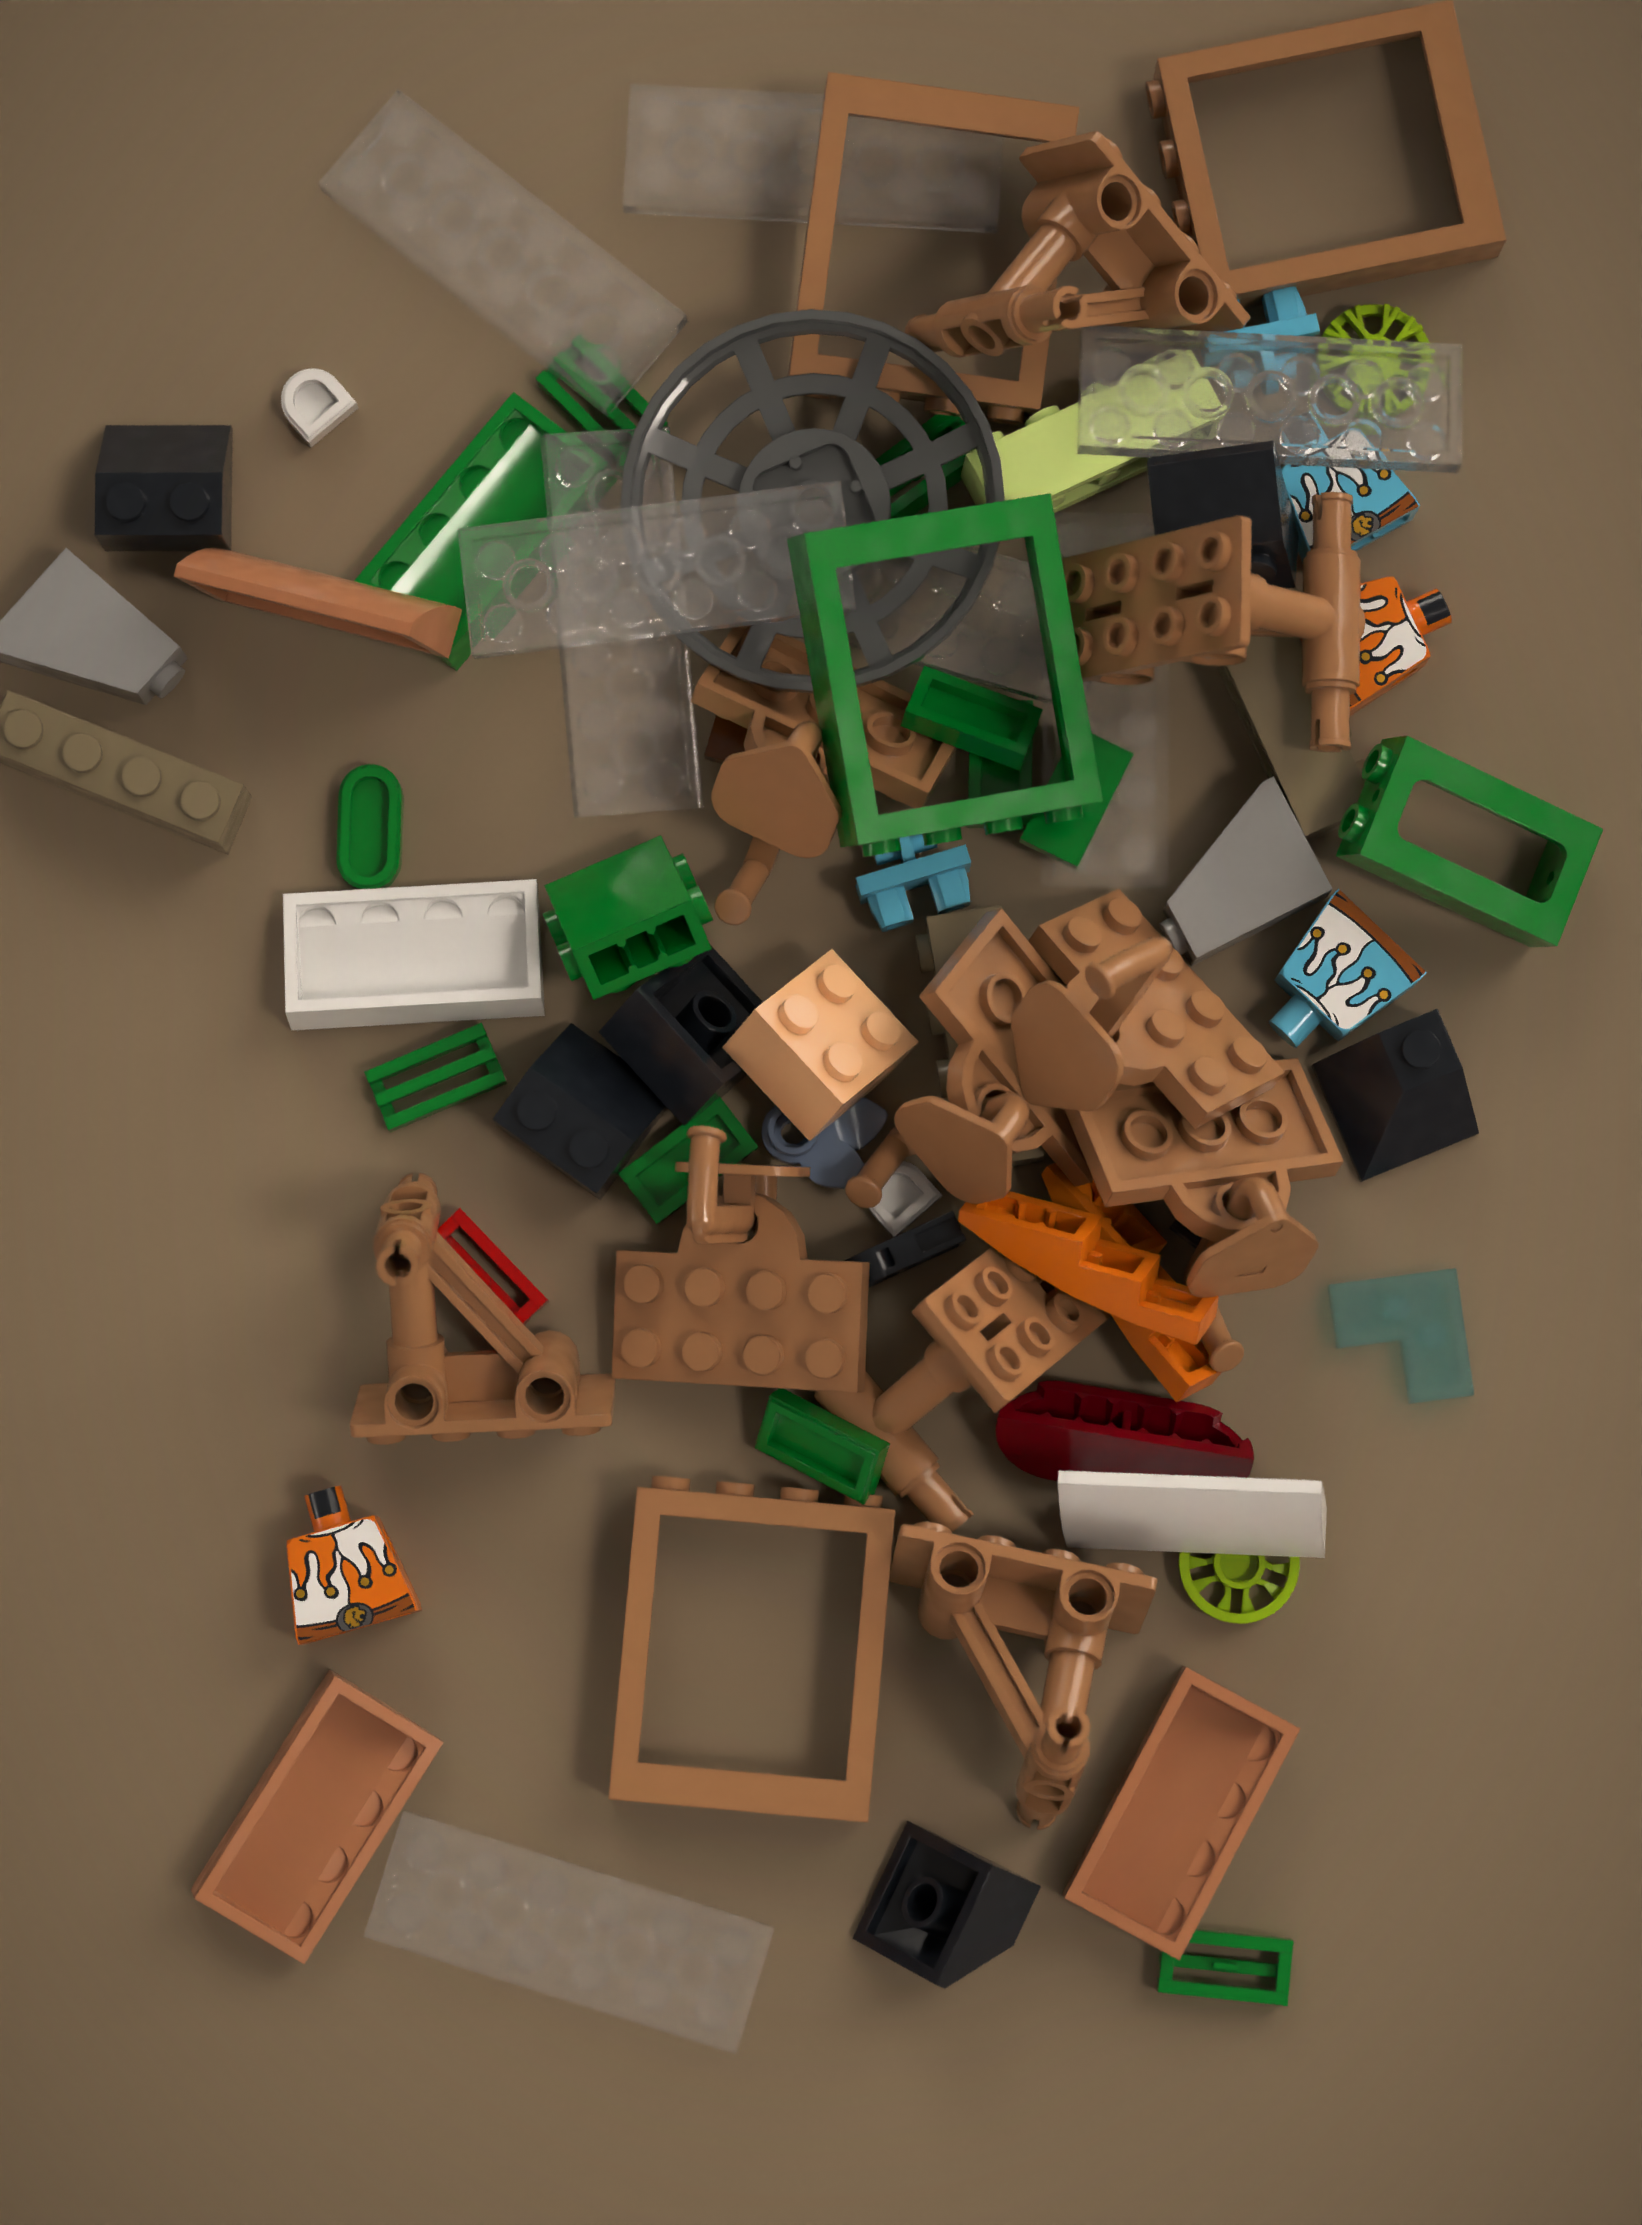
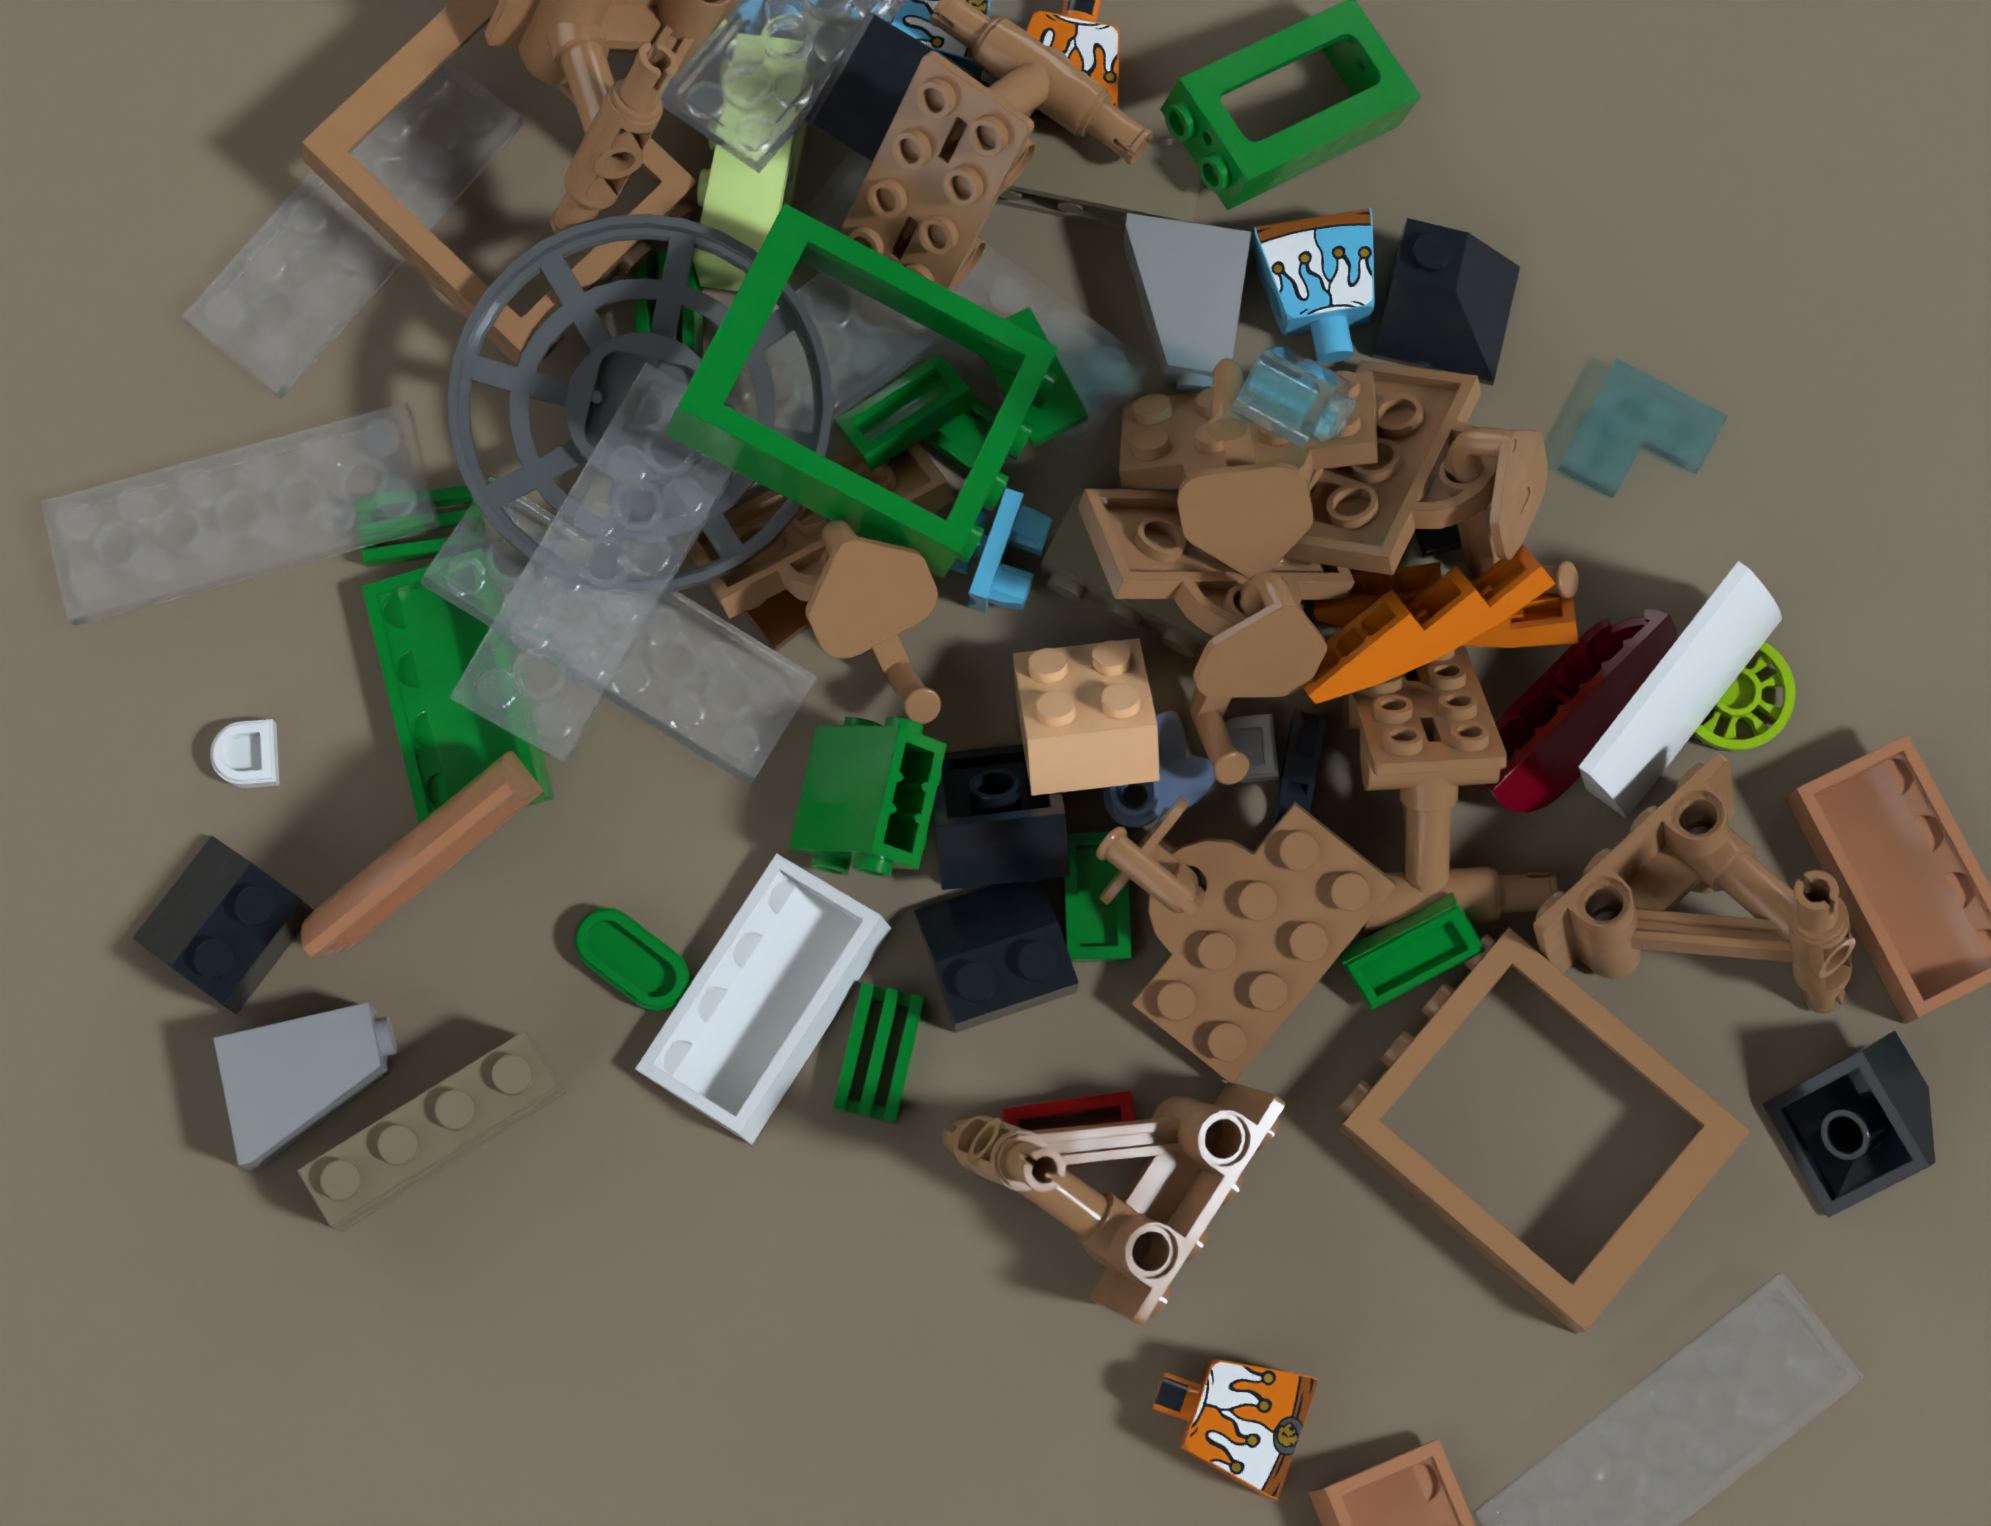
camera: 60 degrees left, 5 degrees down
(1168, 1019) = (1295, 397): none -> clear light blue brick

